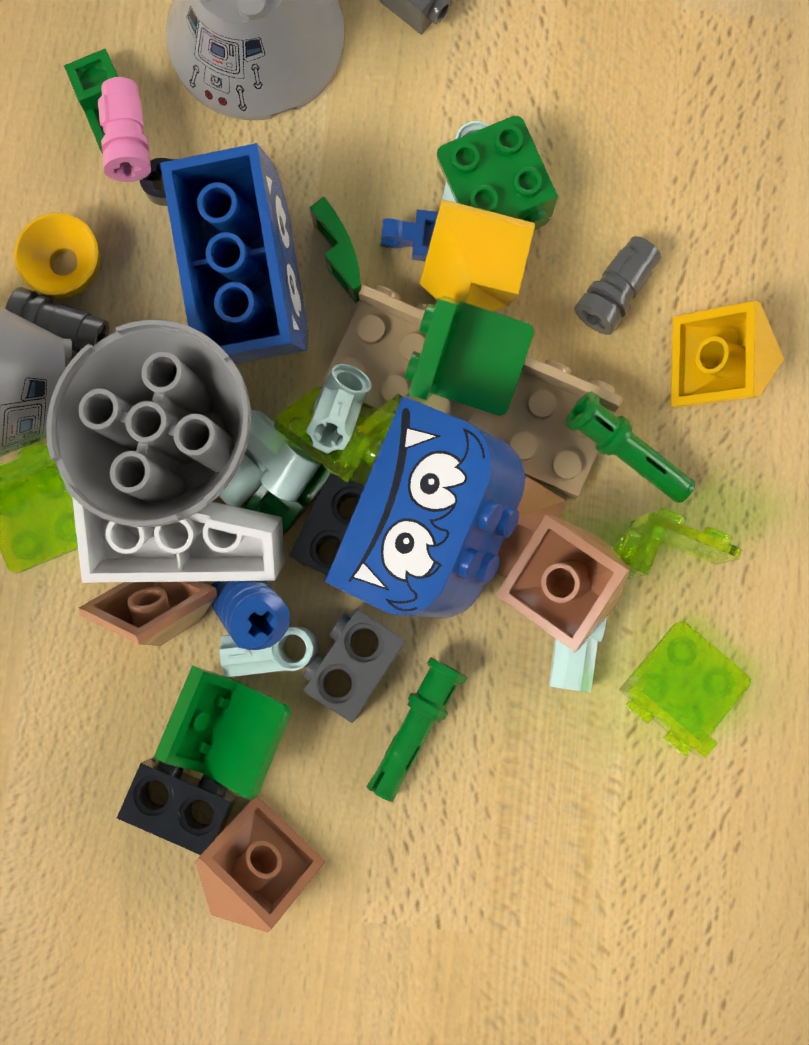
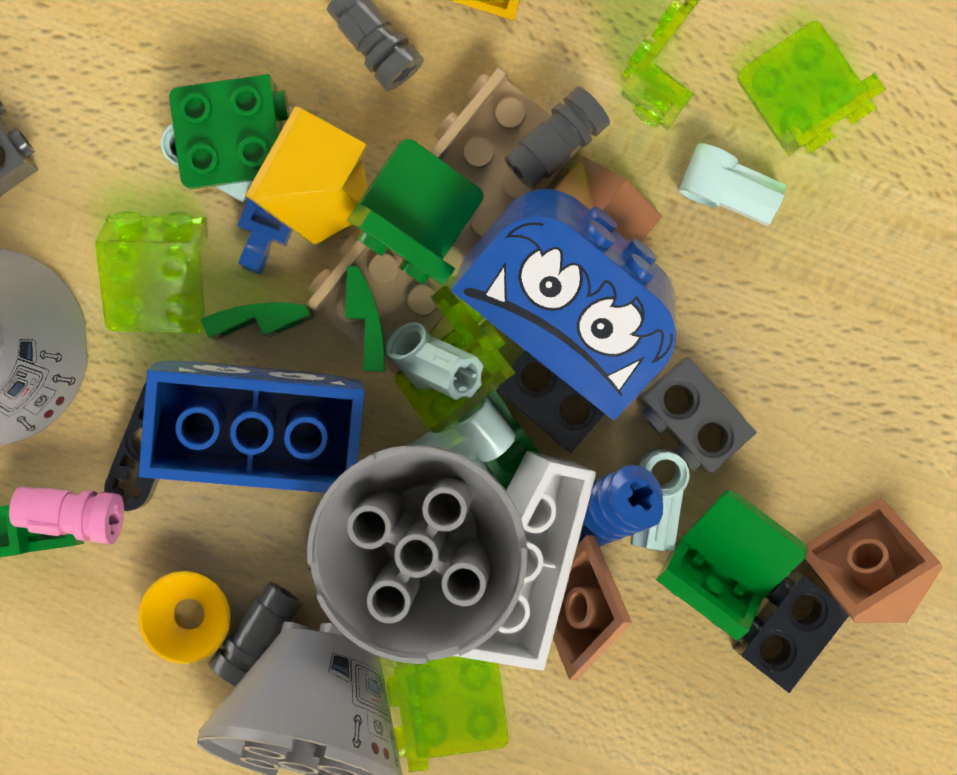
camera: 85 degrees left, 5 degrees up
(357, 147) = (152, 272): none -> clear neon green bracket
(375, 332) = (362, 306): none -> green slope
(426, 708) = (758, 355): green pin -> none
(565, 581) = (673, 178): nougat slope -> none
(568, 463) = (553, 141): none -> dark grey axle
(615, 437) = (538, 85): green pin -> none

